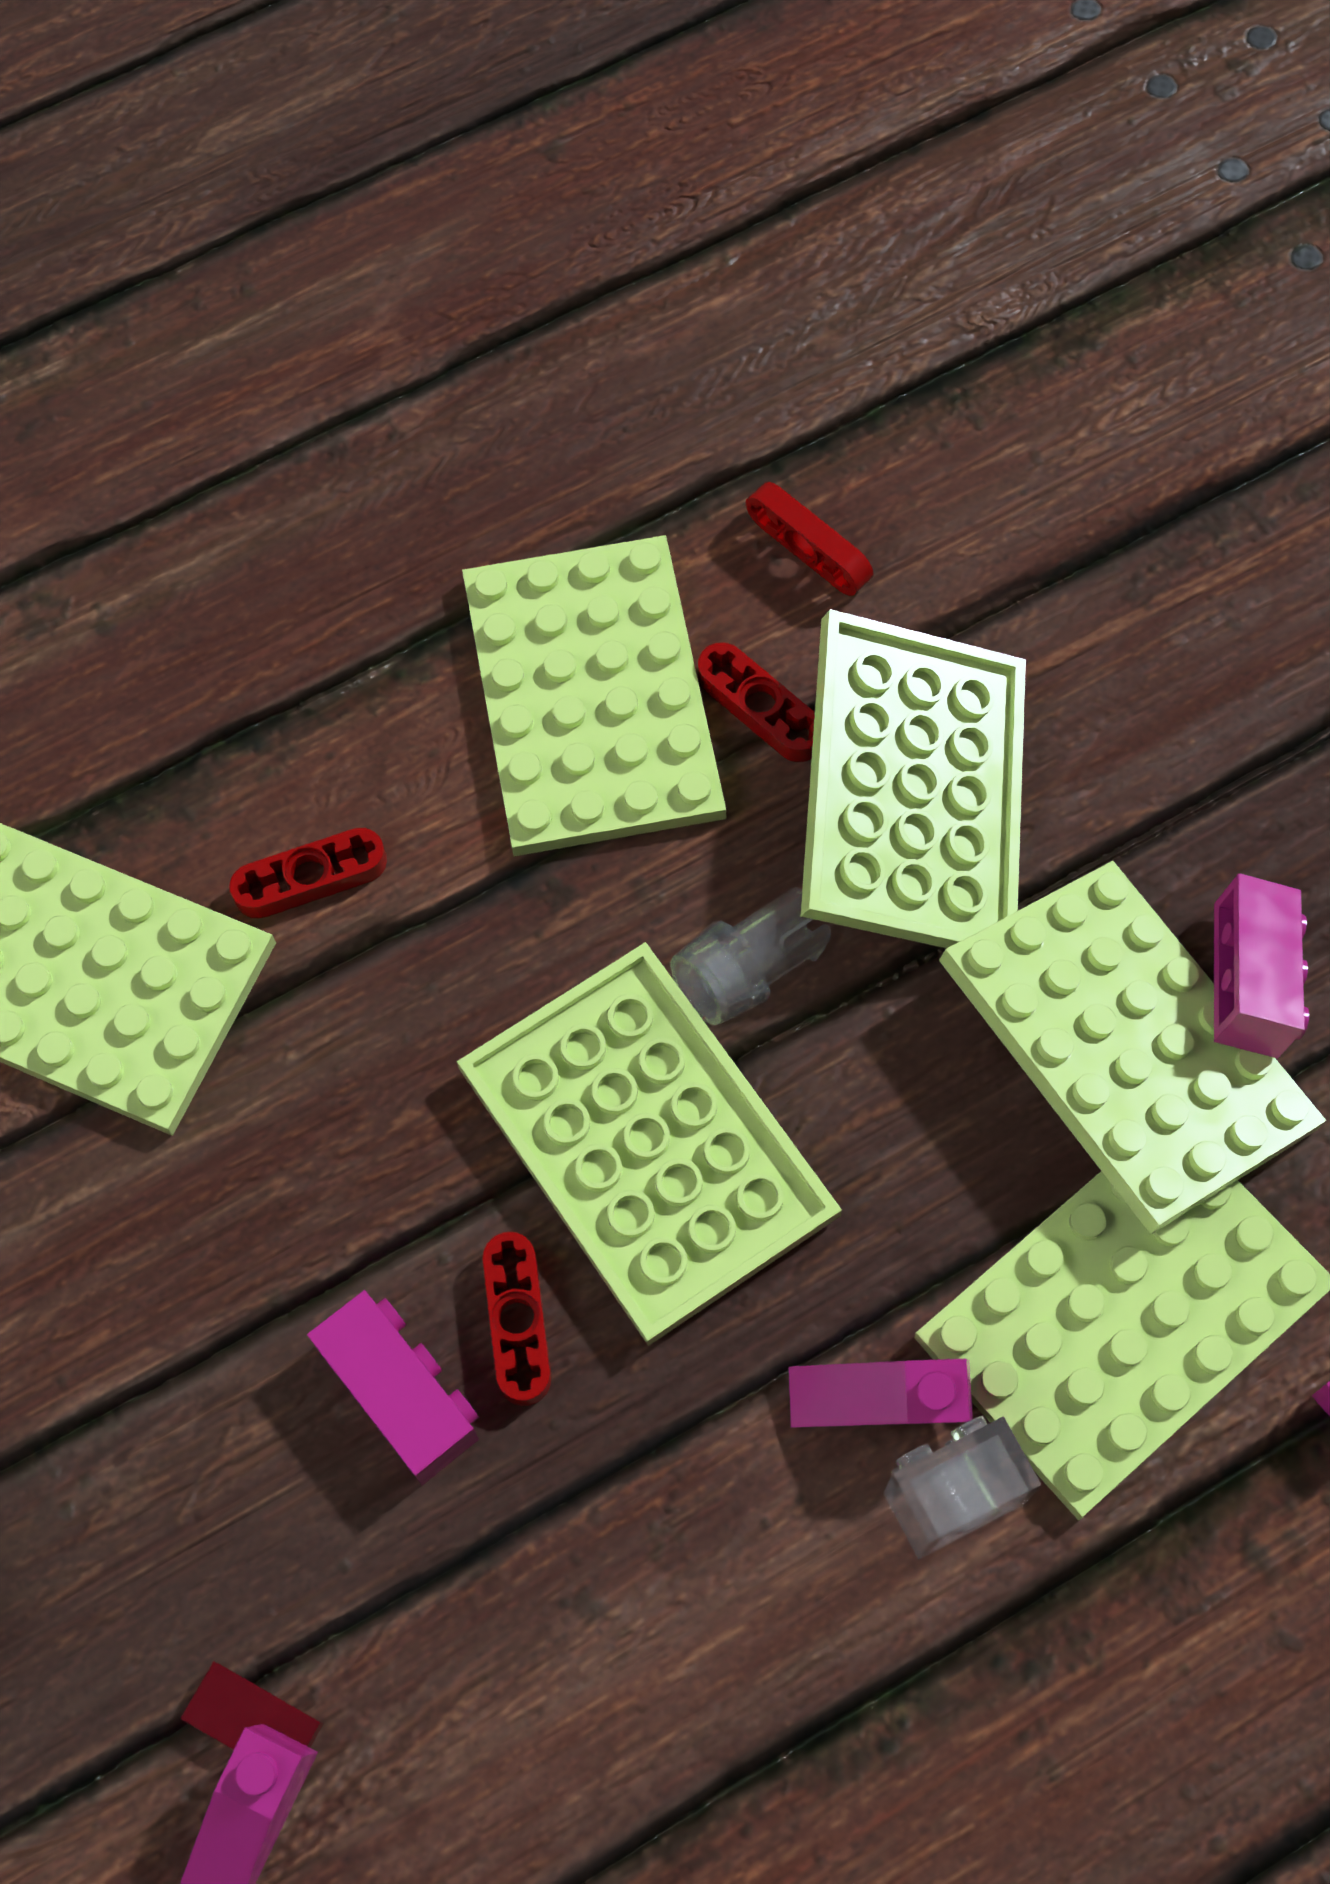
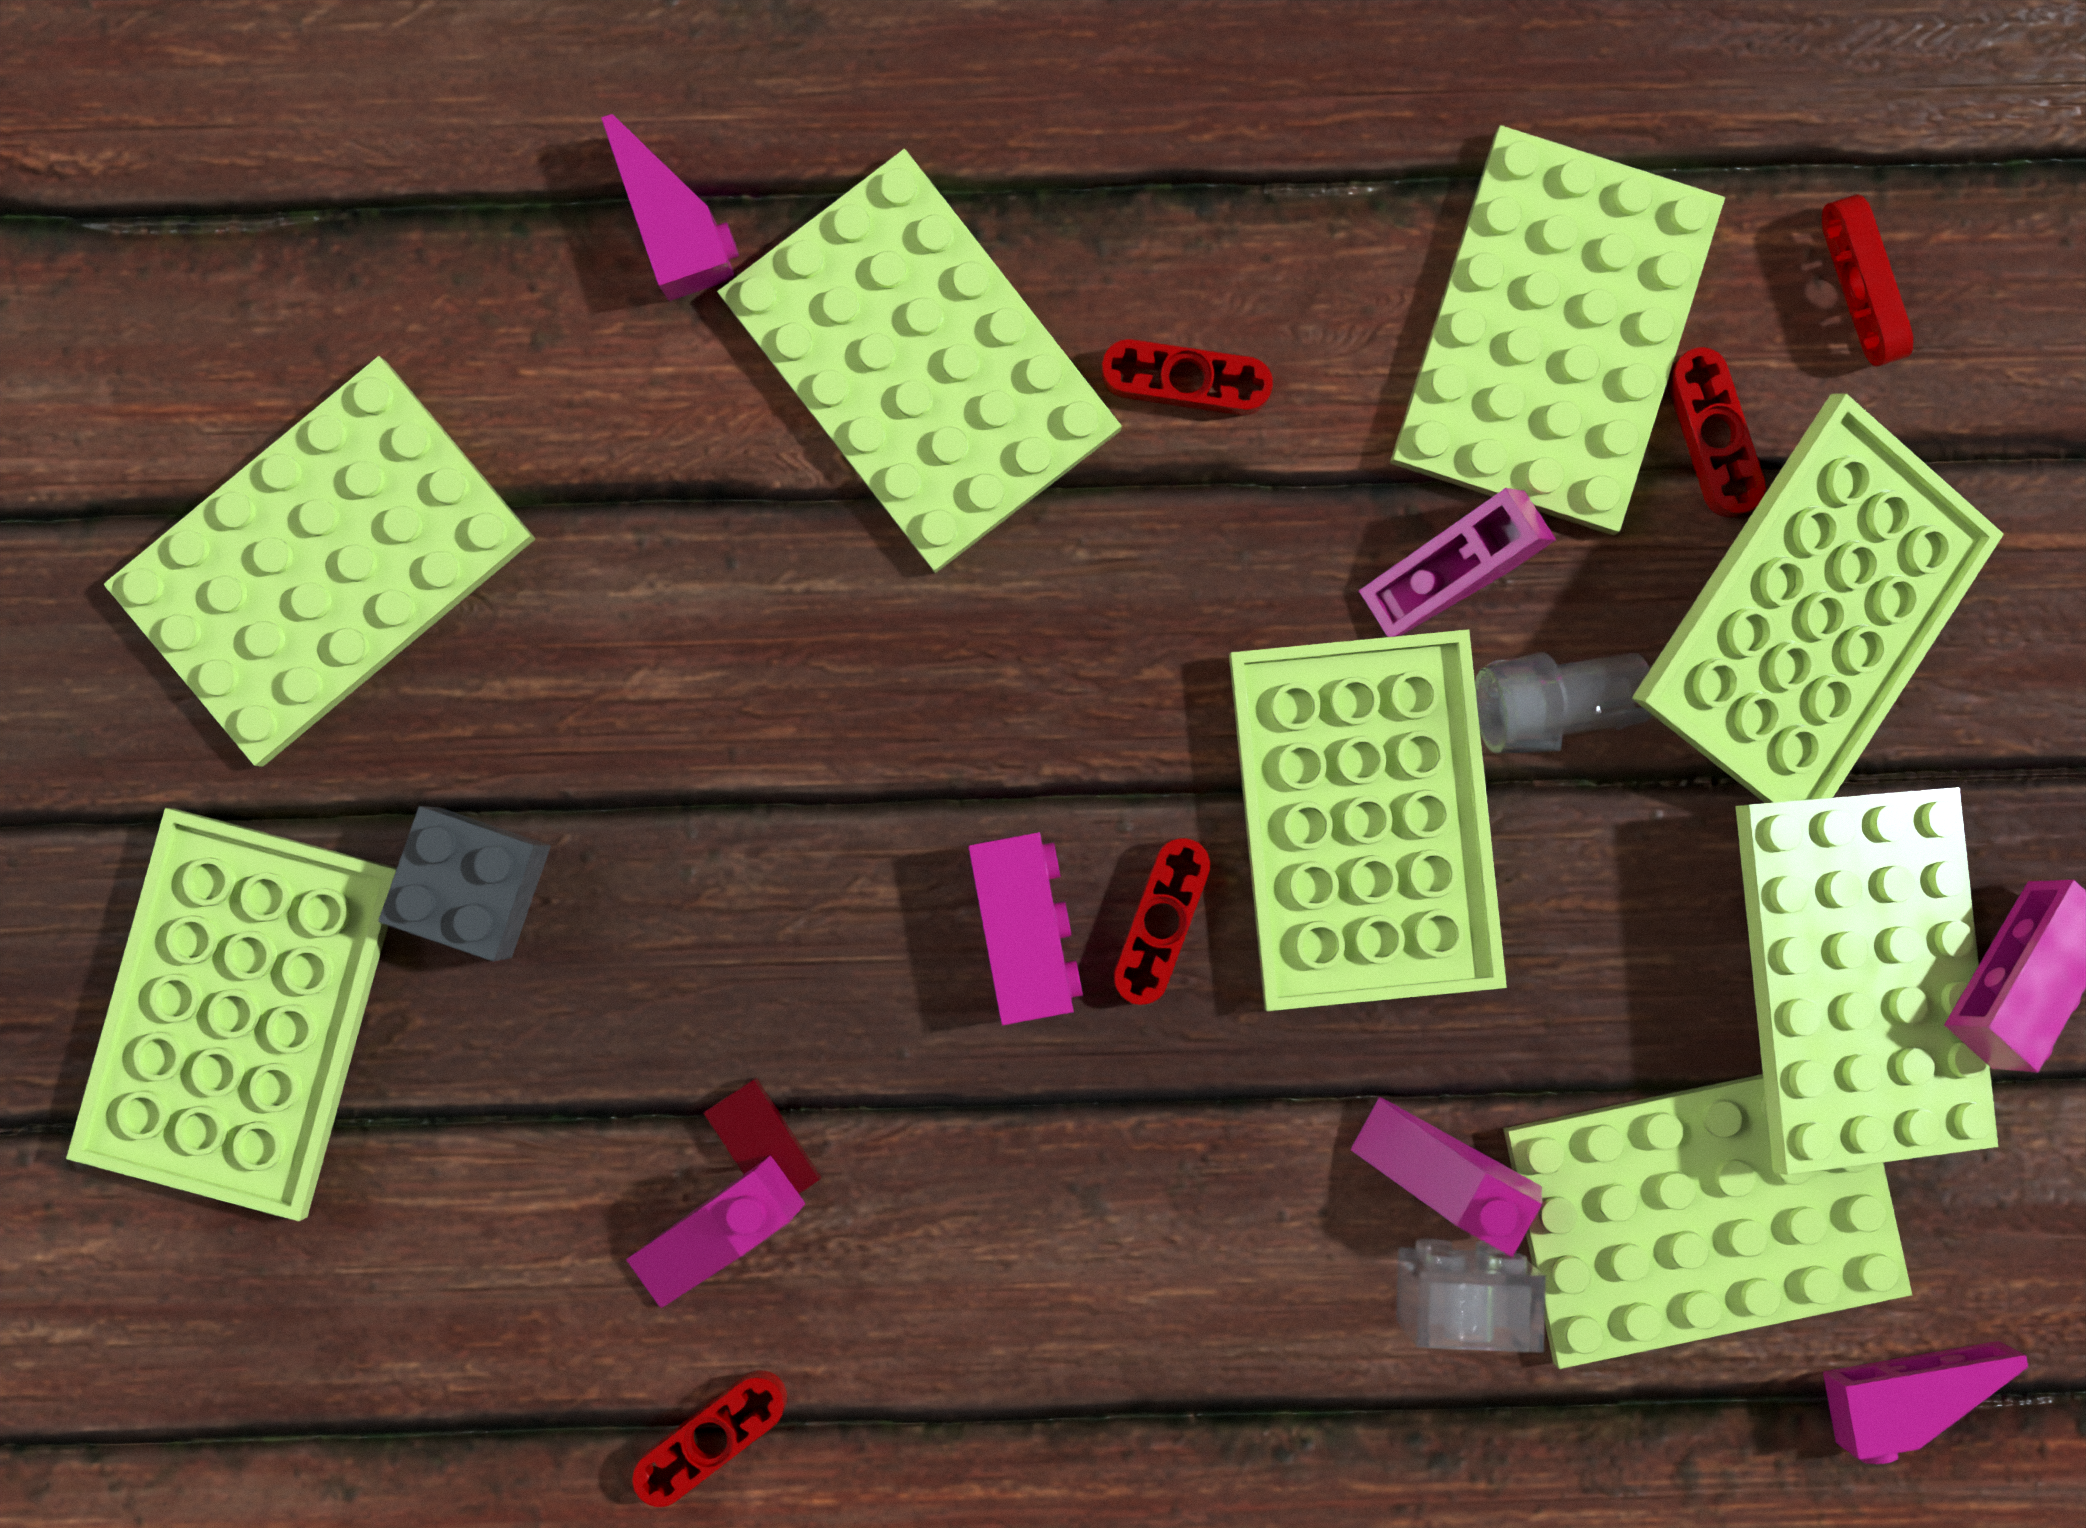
camera: 25 degrees right, 20 degrees up
(608, 895) = (1458, 562): none -> dark pink slope

